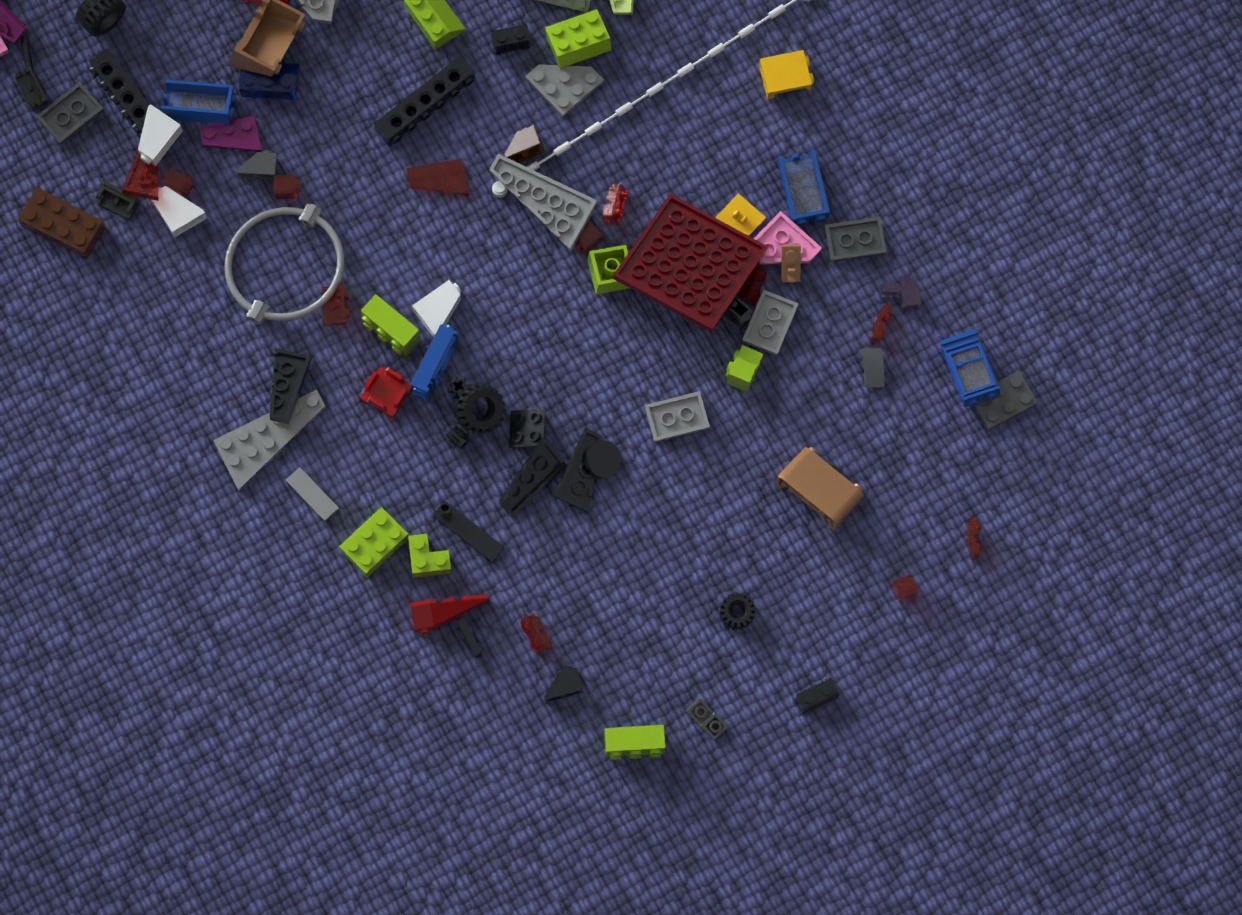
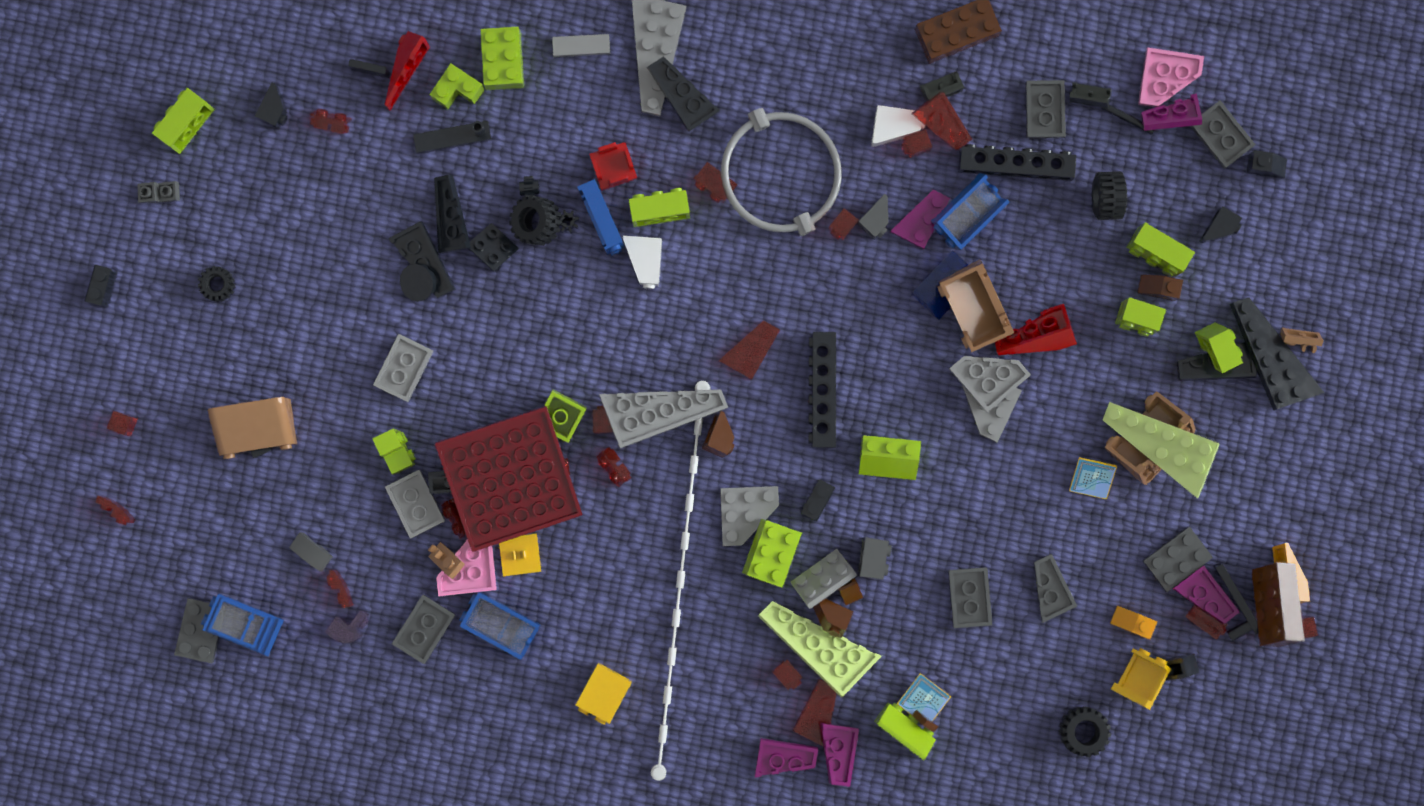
camera: 135 degrees right, 10 degrees up
(157, 135) = (965, 154): white slope -> none

